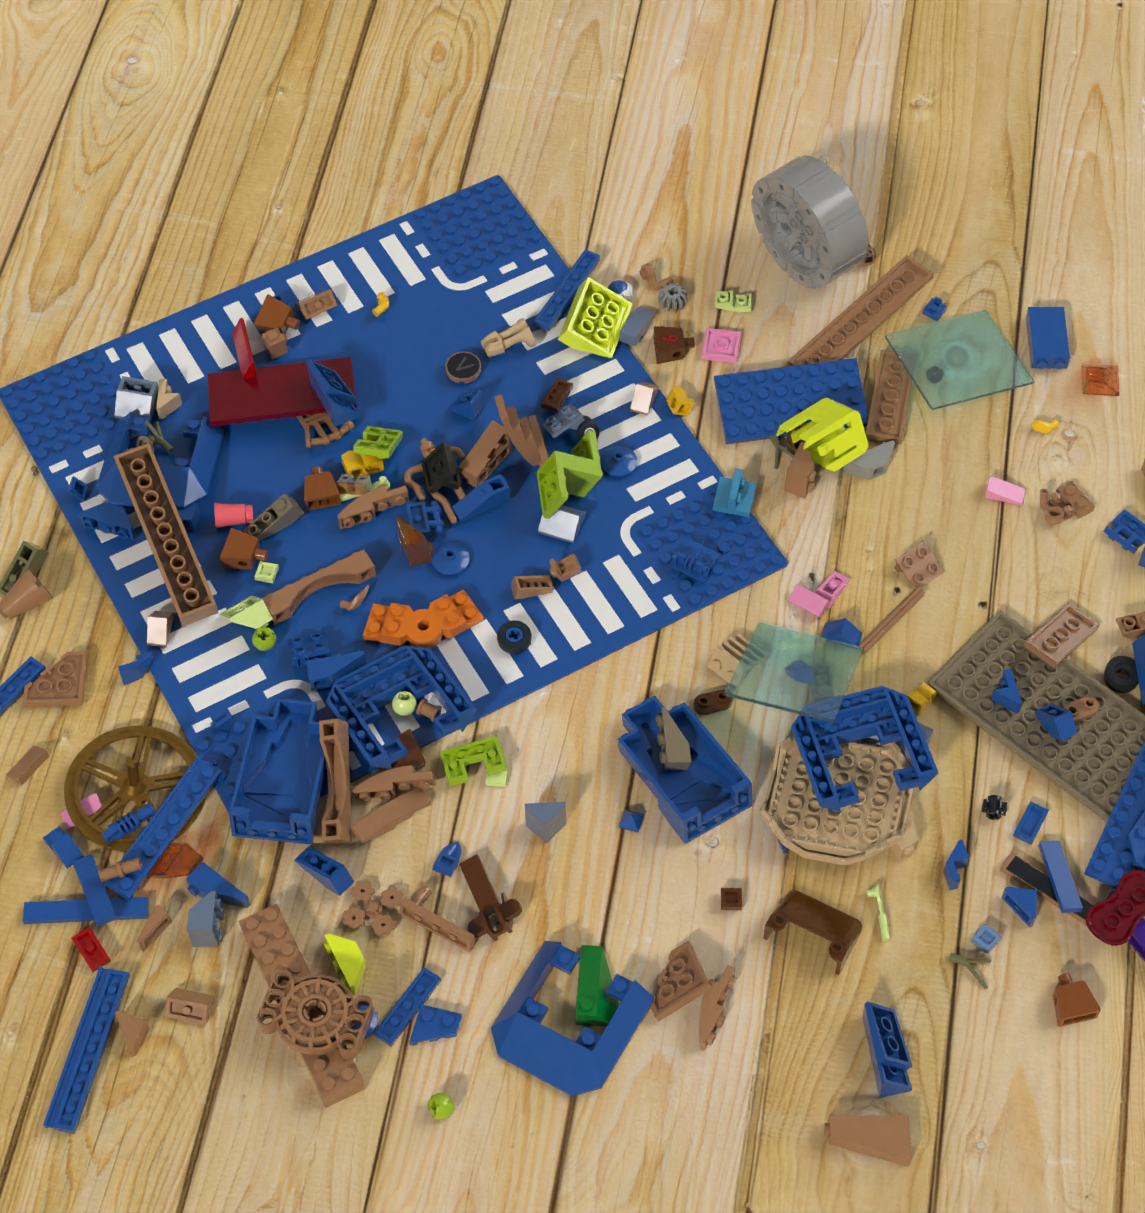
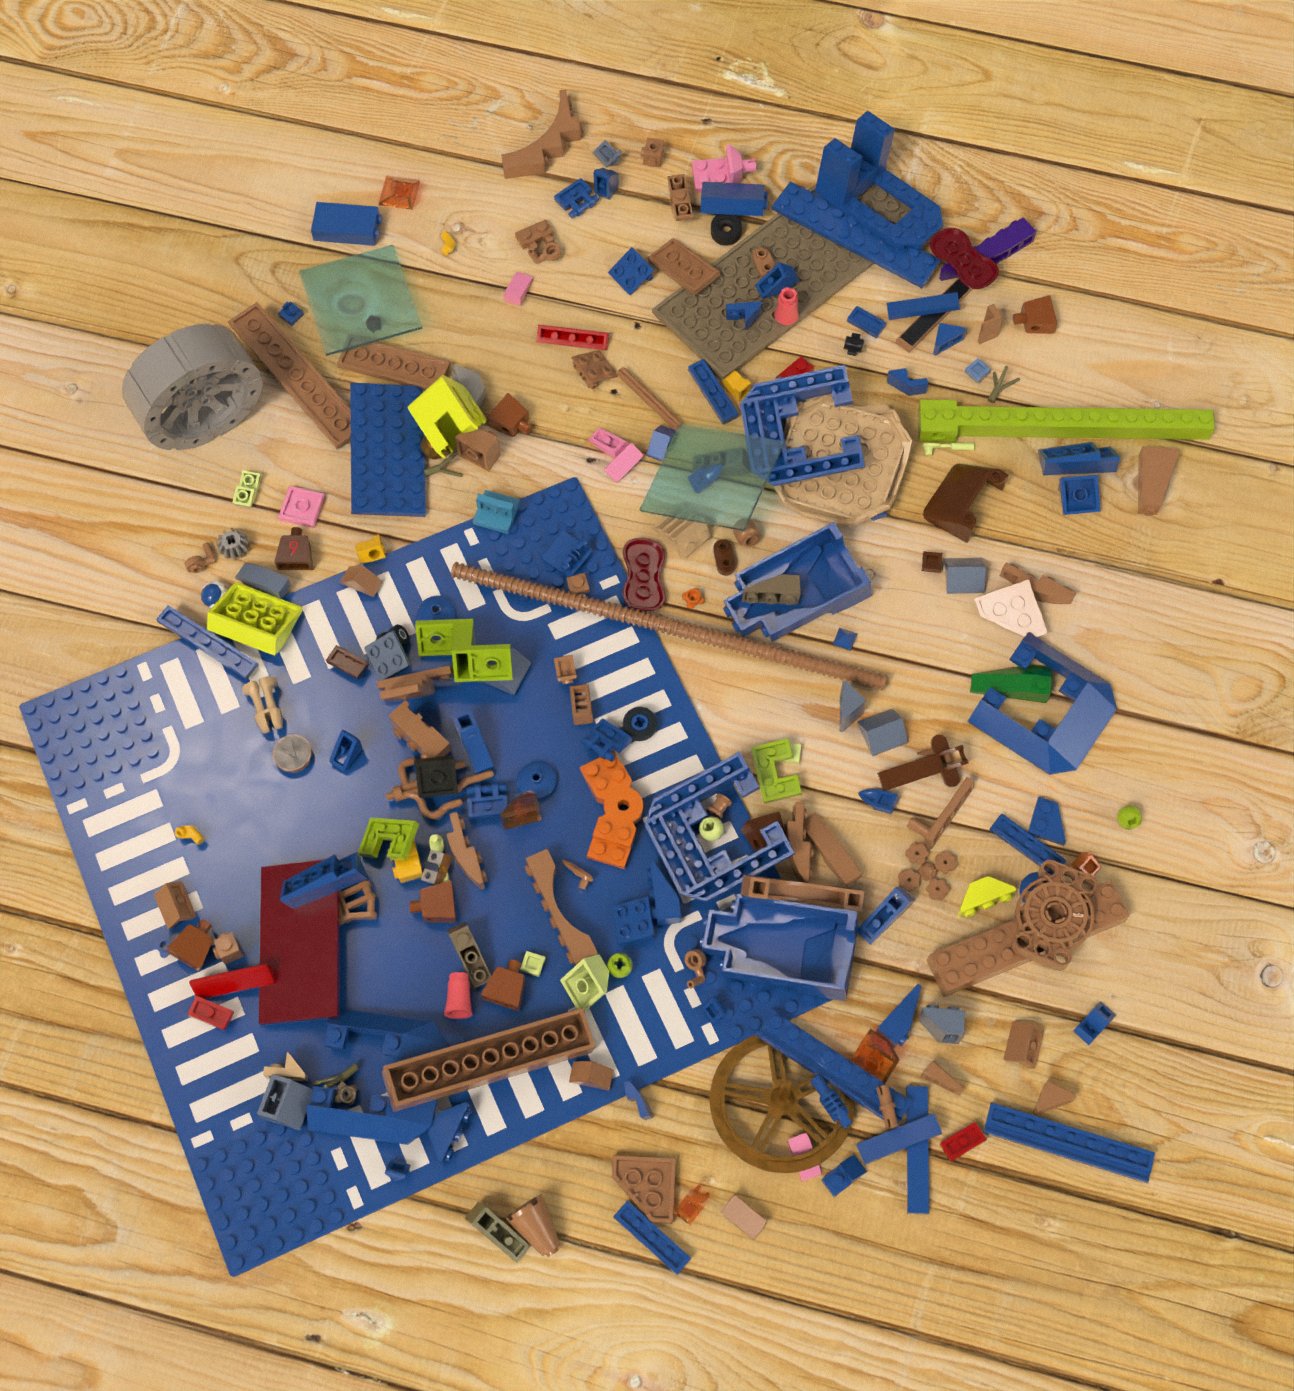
camera: 85 degrees left, 10 degrees up
(37, 718) = (690, 1207): none -> clear orange plate
(210, 1073) = (1094, 1023): none -> blue slope
(217, 340) = (210, 1013): none -> red plate
(267, 702) = (696, 965): none -> medium nougat plate
(386, 1066) = (1086, 863): none -> orange slope
(496, 611) = (609, 735): none -> blue plate
(526, 859) = (883, 731): none -> sand blue slope
(620, 663) = (668, 625): none -> medium nougat piece
(661, 572) = (578, 584): none -> medium nougat plate
(661, 671) = (692, 593): none -> orange plate
(664, 629) = (643, 584): none -> dark red plate
(721, 933) = (964, 575): none -> sand blue slope
(741, 717) = (749, 536): none -> medium nougat head
(837, 1050) = (1079, 494): none -> blue slope
(846, 497) = (509, 417): none -> dark orange torso
(912, 906) = (945, 421): none -> lime piece
(914, 672) = (713, 391): none -> blue plate
(949, 754) = (798, 367): none -> red plate
(955, 546) = (572, 337): none -> red slope
(1021, 732) = (787, 307): none -> coral plant
(1042, 946) = (991, 324): none -> medium nougat panel
(1046, 590) = (631, 271): none -> blue hinge

